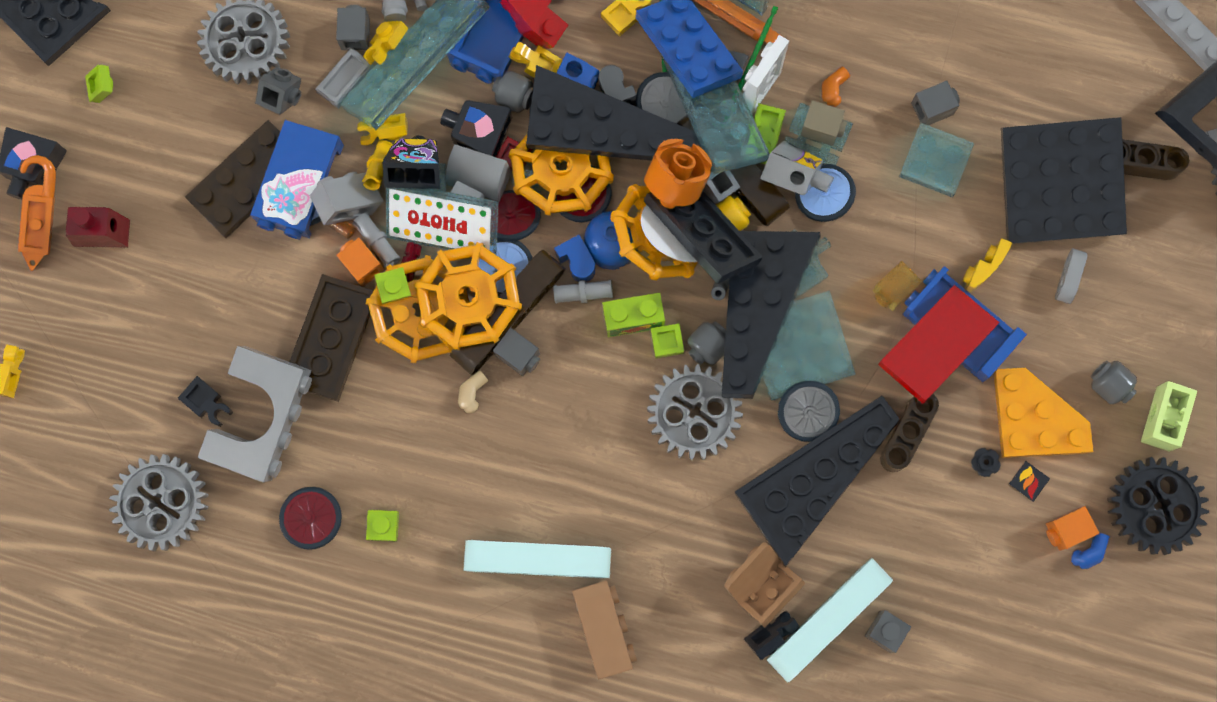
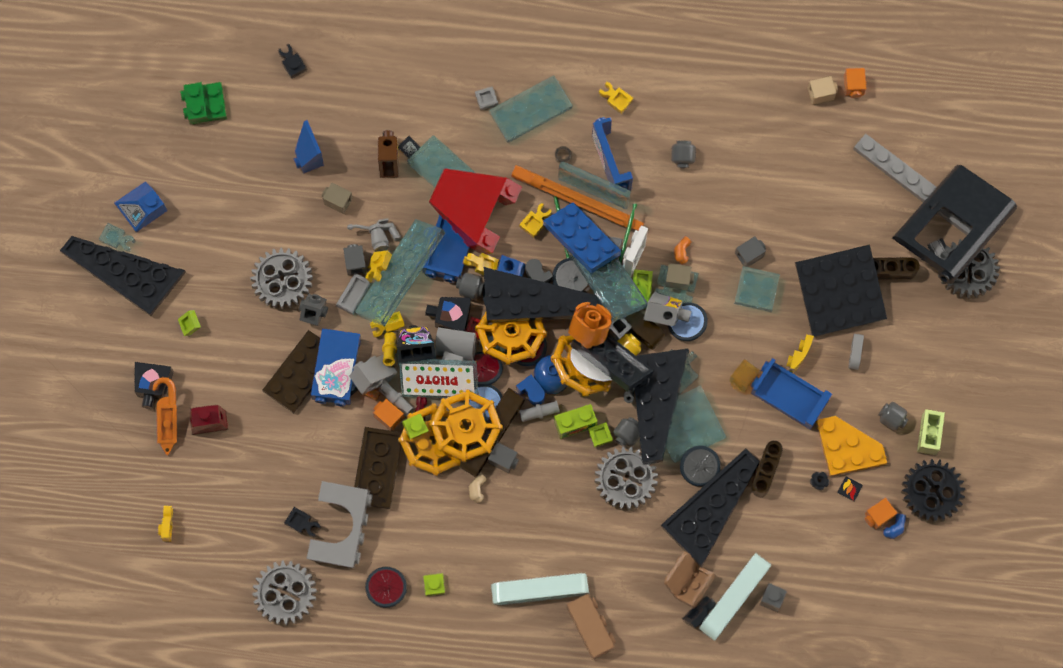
camera: 15 degrees left, 5 degrees down
(938, 344) = (776, 408): red tile -> none

